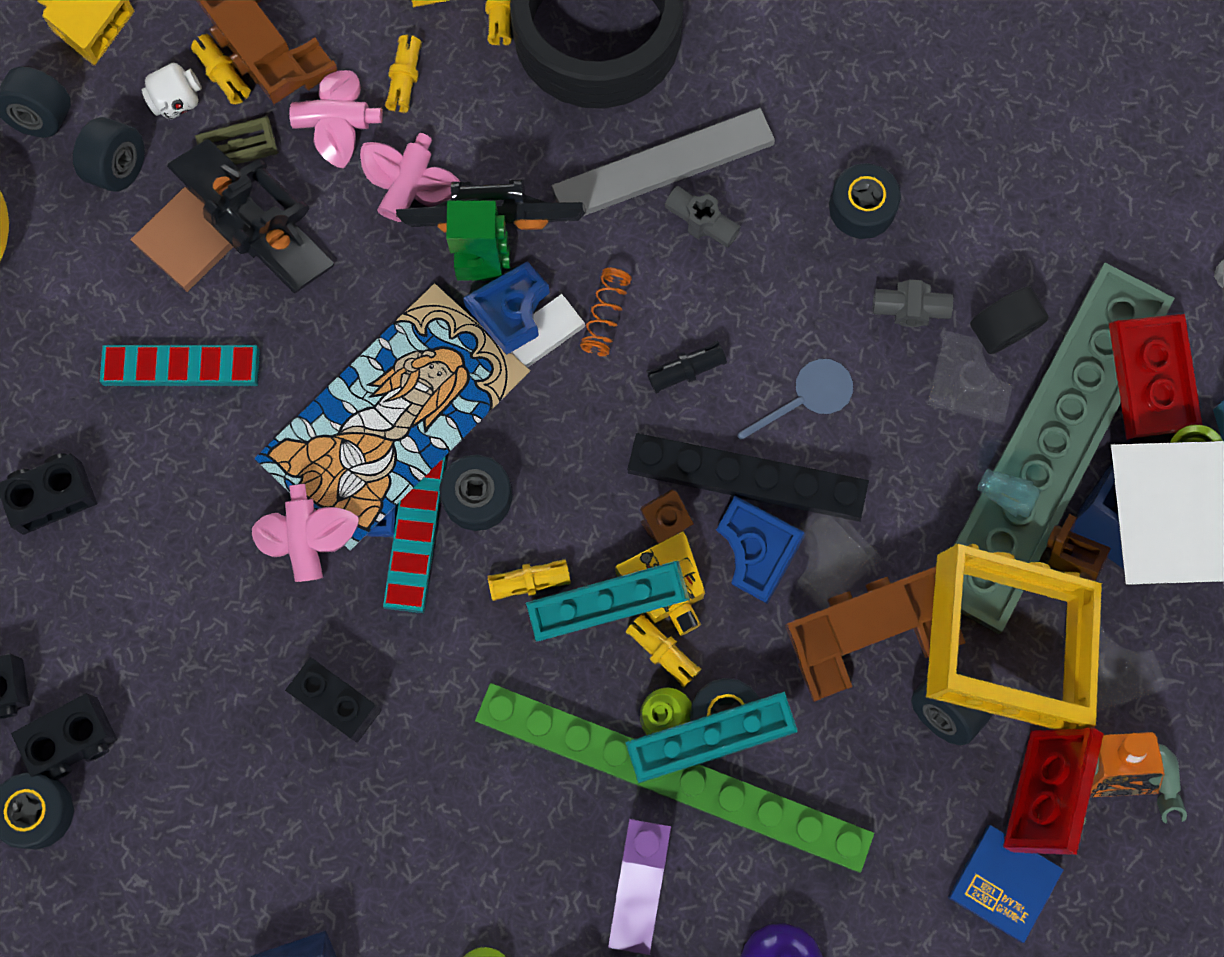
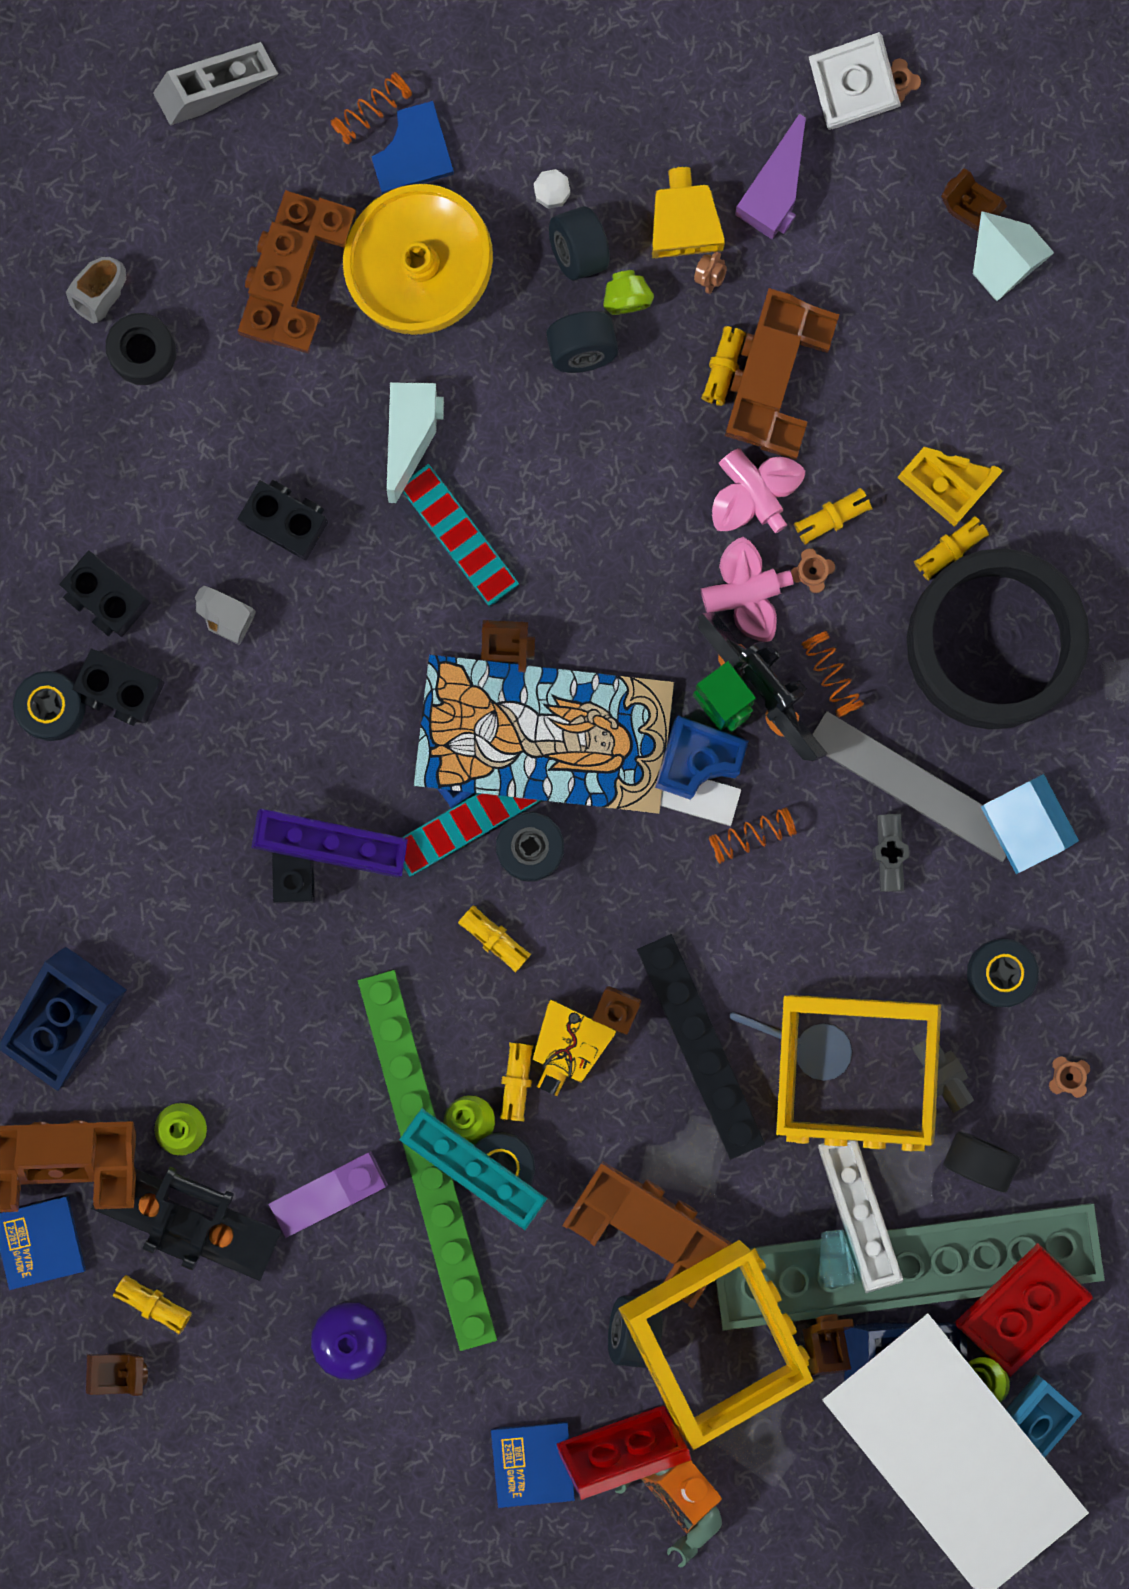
camera: 55 degrees right, 10 degrees up
(62, 335) = (411, 429): none -> light aqua slope
(80, 600) = (224, 614): none -> light grey rock
(103, 96) = (627, 293): none -> lime cone
(140, 26) = (710, 271): none -> nougat plate
(171, 91) = (674, 343): white head -> none
(182, 240) = (561, 457): nougat tile -> none
(237, 144) = (696, 449): olive tile -> none
(243, 223) = (607, 492): black piece -> none
(296, 387) = (507, 642): none -> reddish brown bracket
(304, 533) = (399, 741): bright pink plant -> none
(337, 652) = (329, 843): none -> dark purple tile
(429, 109) = (822, 566): none -> nougat plate
(562, 165) = (842, 711): none -> orange piece
(607, 601) = (519, 1013): teal tile -> none
(686, 366) = (755, 932): black pin -> none
(760, 98) = (1029, 824): none -> slope
(760, 546) = (653, 1097): blue tile -> none
(863, 268) = (840, 1134): none -> yellow window
(982, 447) = (861, 1216): none -> white tile
(991, 203) = (1077, 1084): none -> nougat plate

